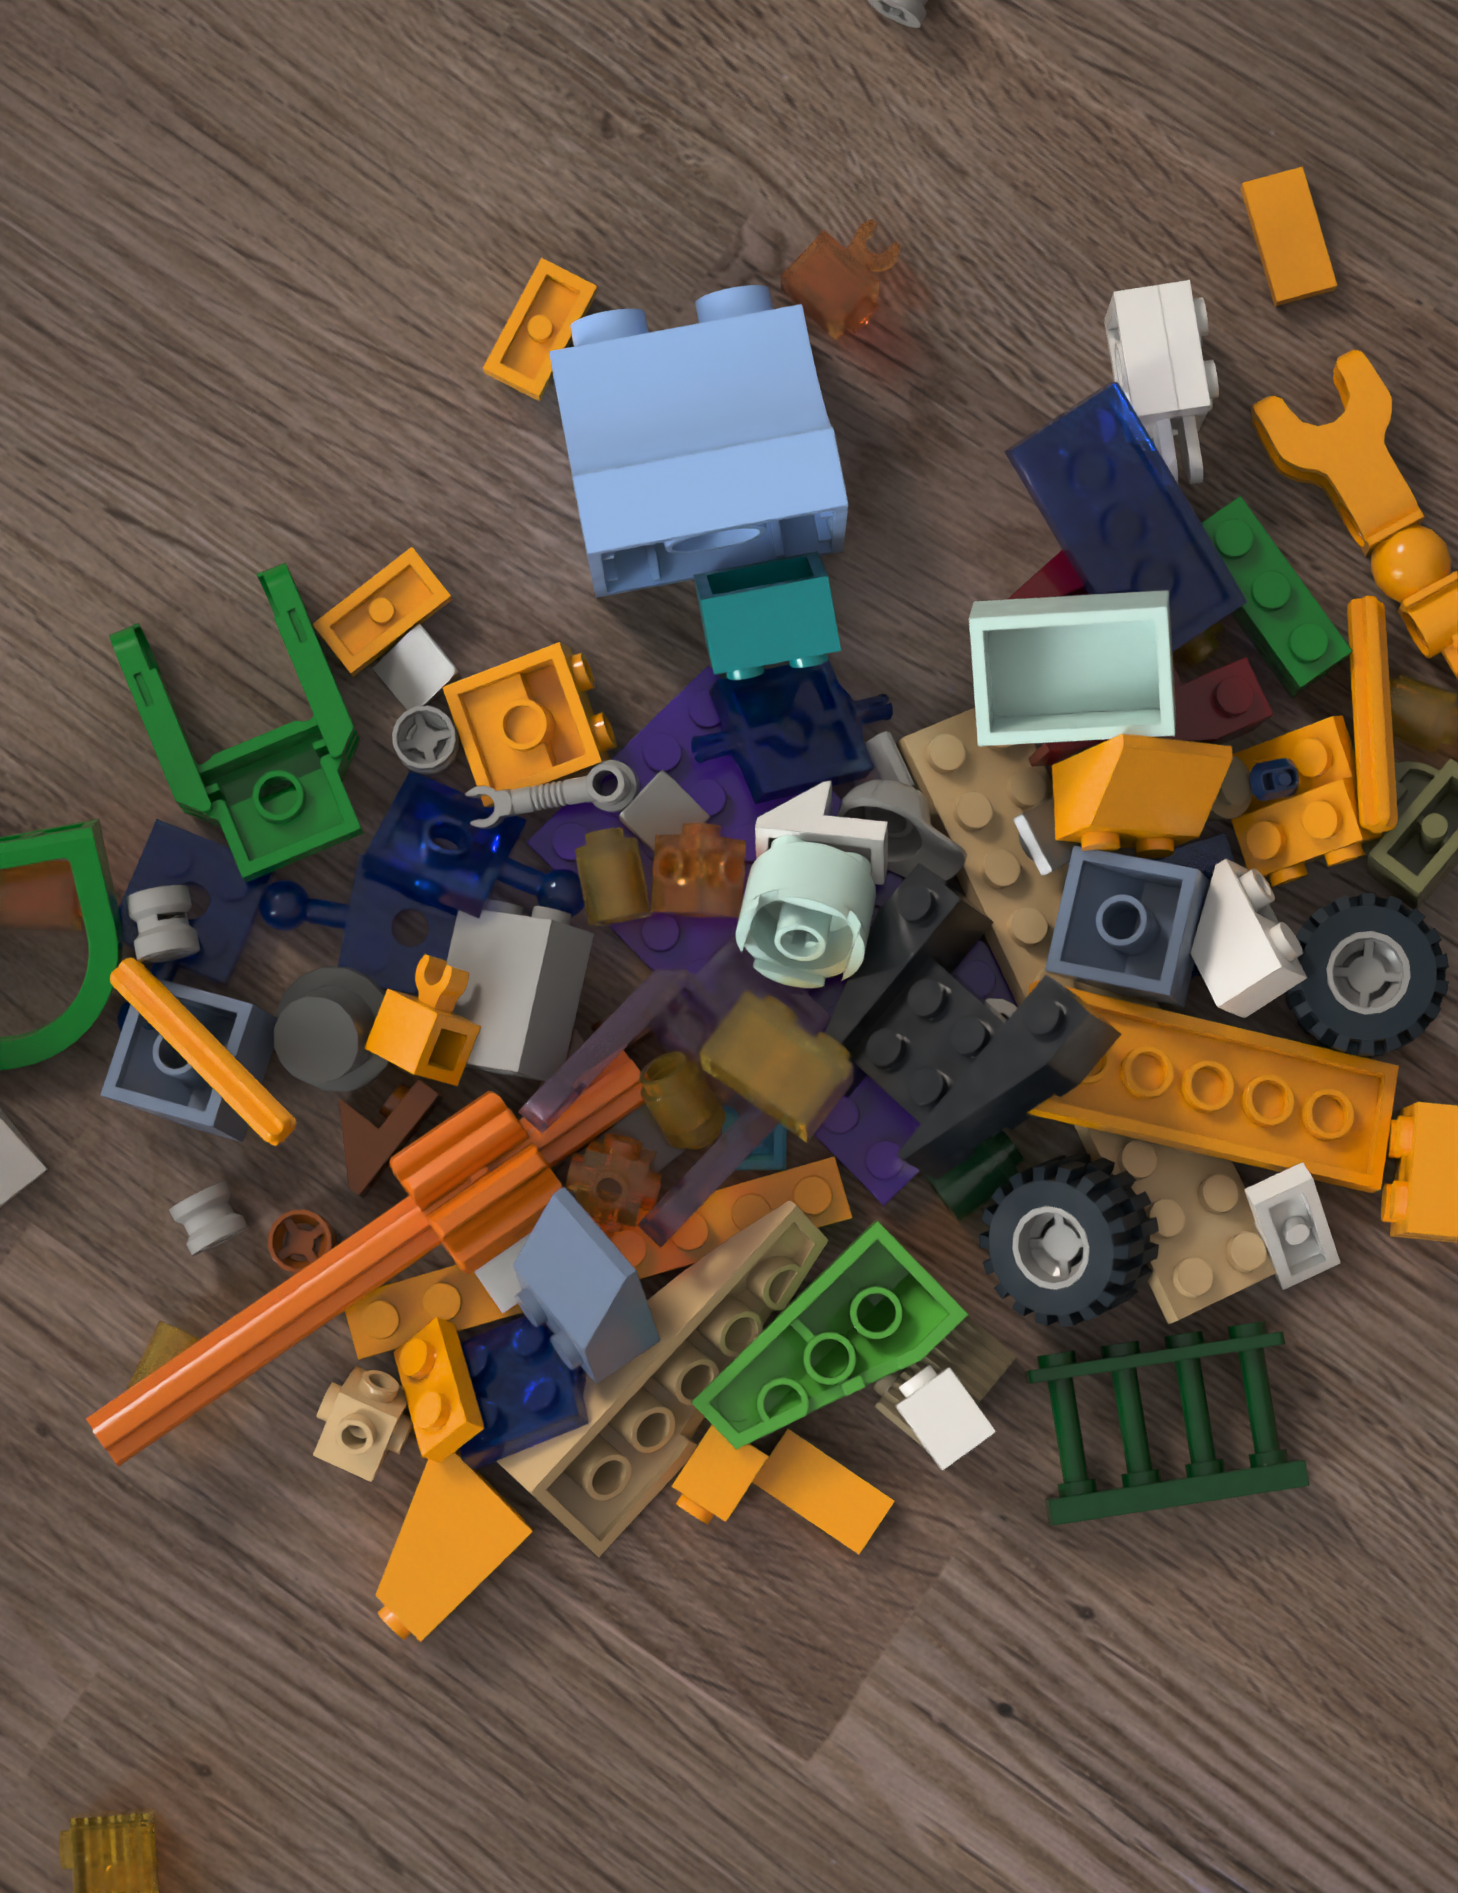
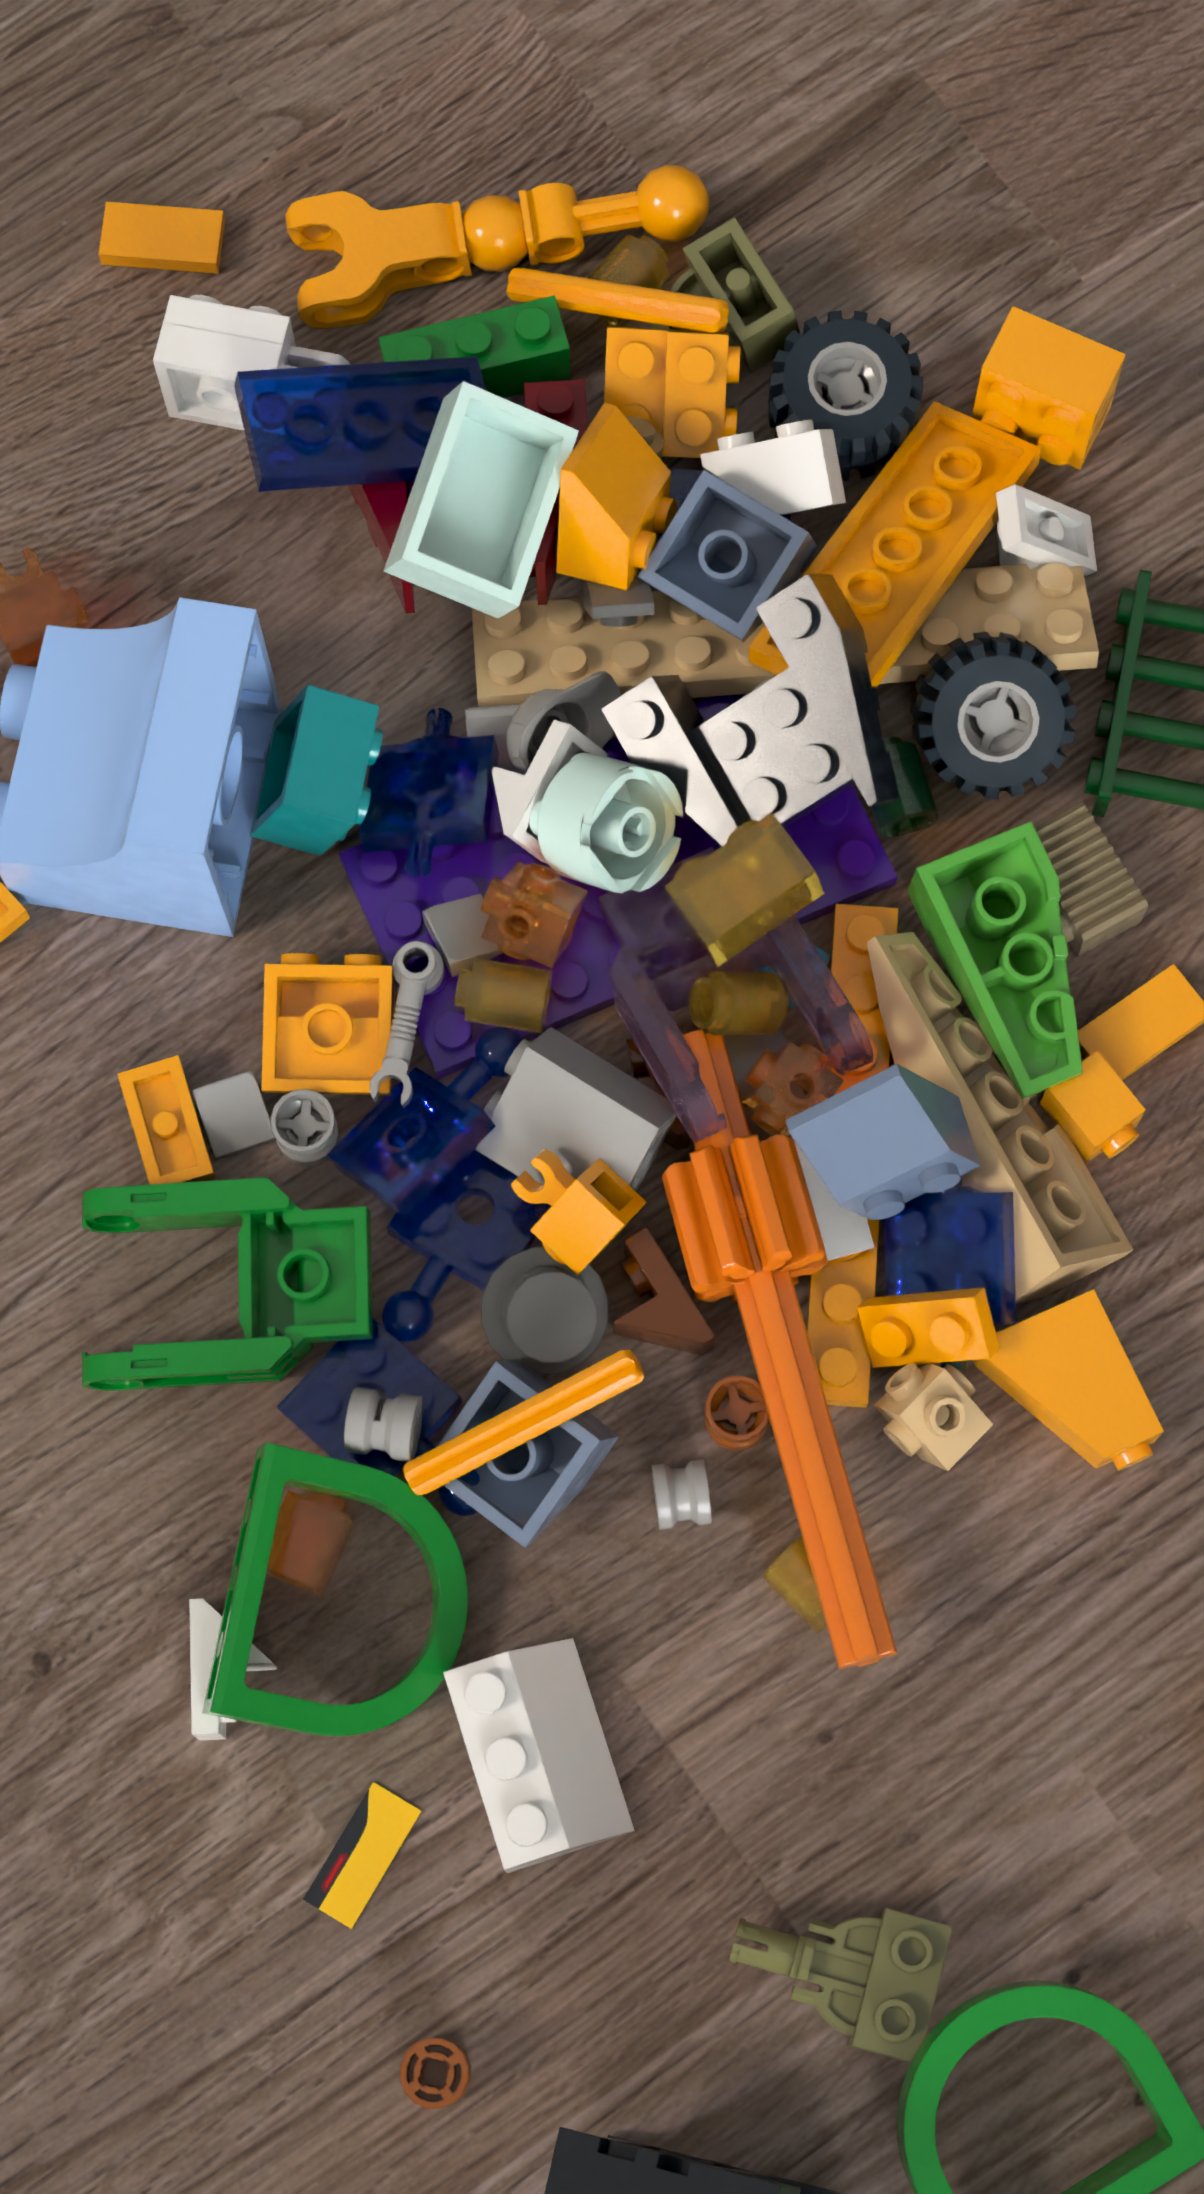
camera: 70 degrees left, 10 degrees down
(943, 1415) = (1119, 873): white brick -> none
(1274, 779) = (644, 394): dark blue rock -> none

